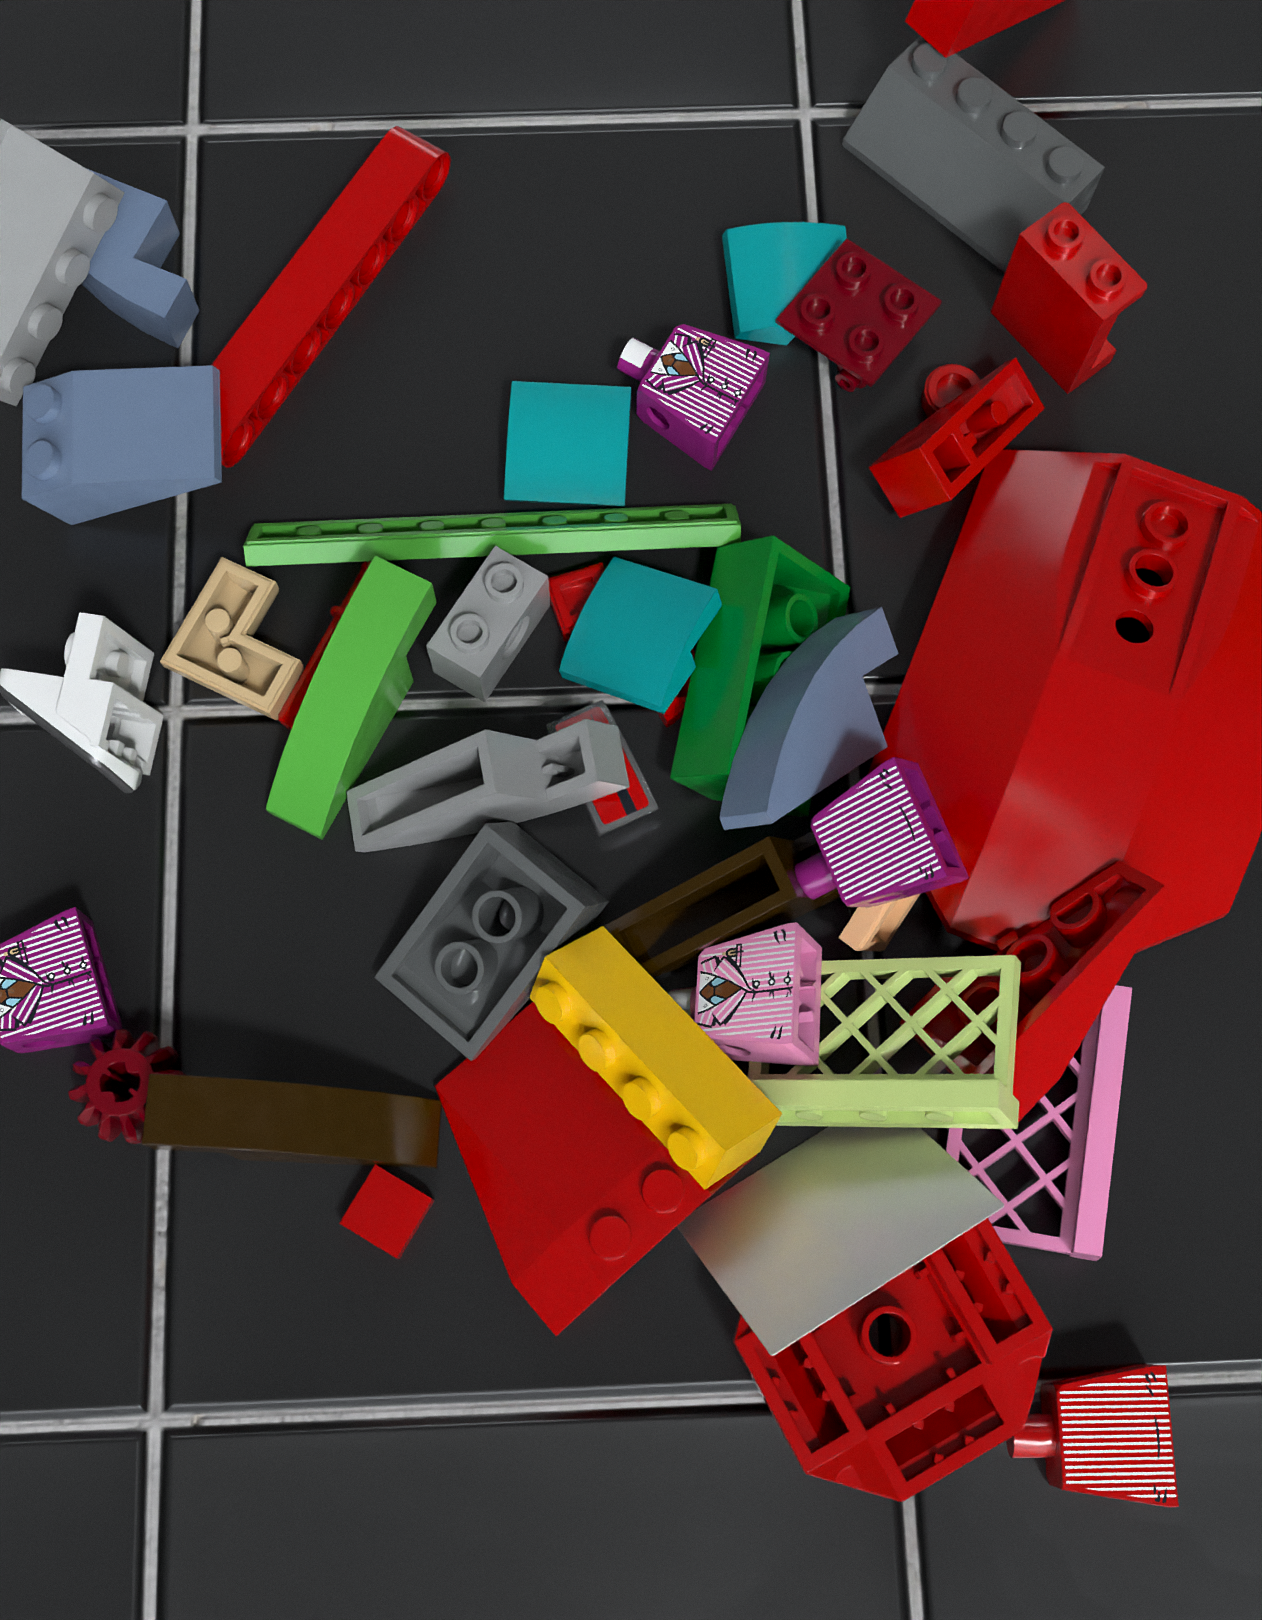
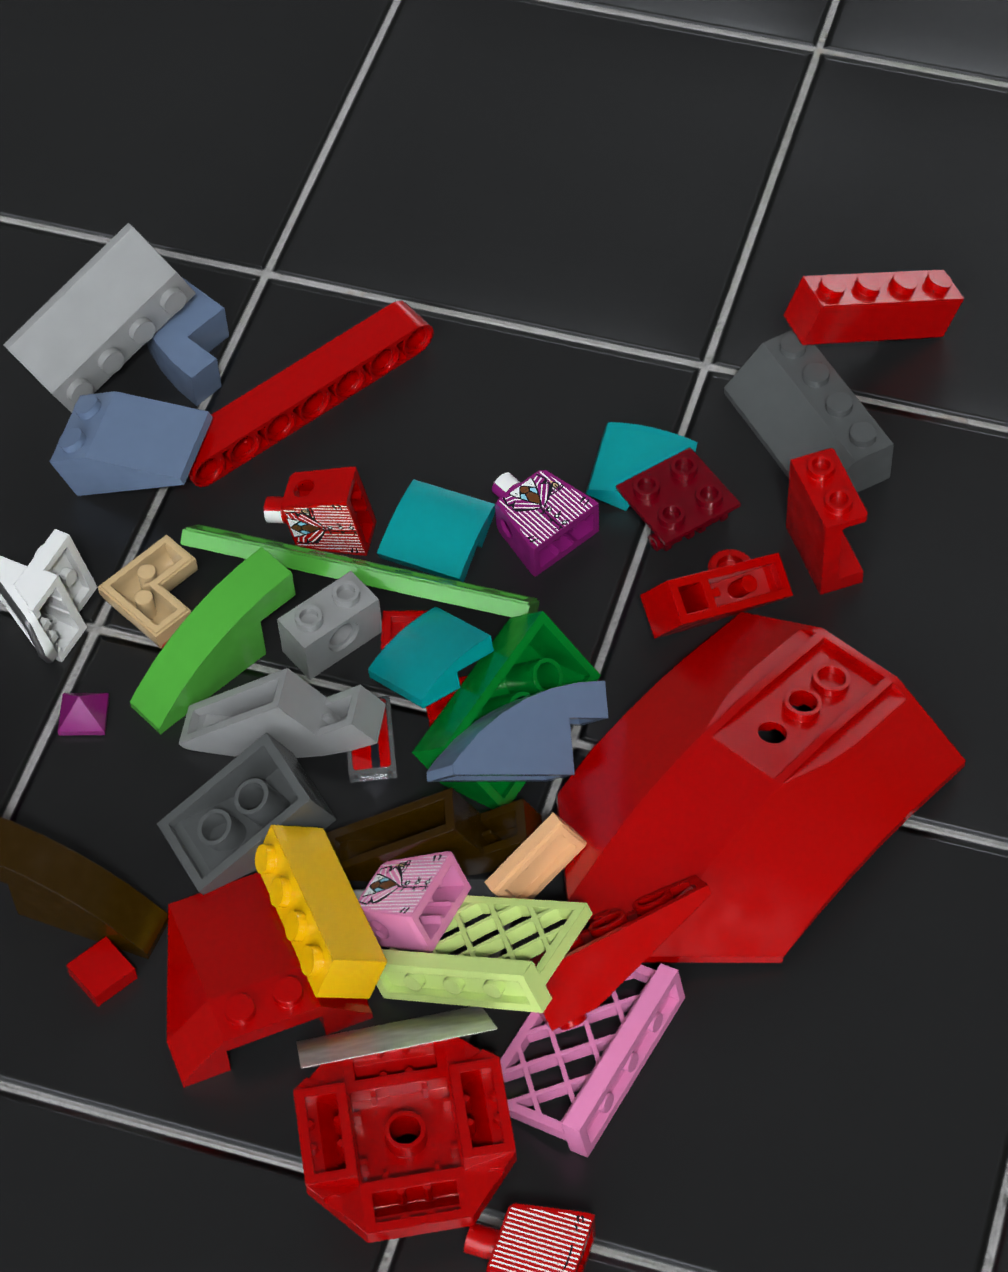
camera: 25 degrees right, 20 degrees down
(210, 844) = (83, 714): none -> magenta slope
(417, 461) = (325, 511): none -> red torso
(881, 841) = (528, 810): magenta torso -> none

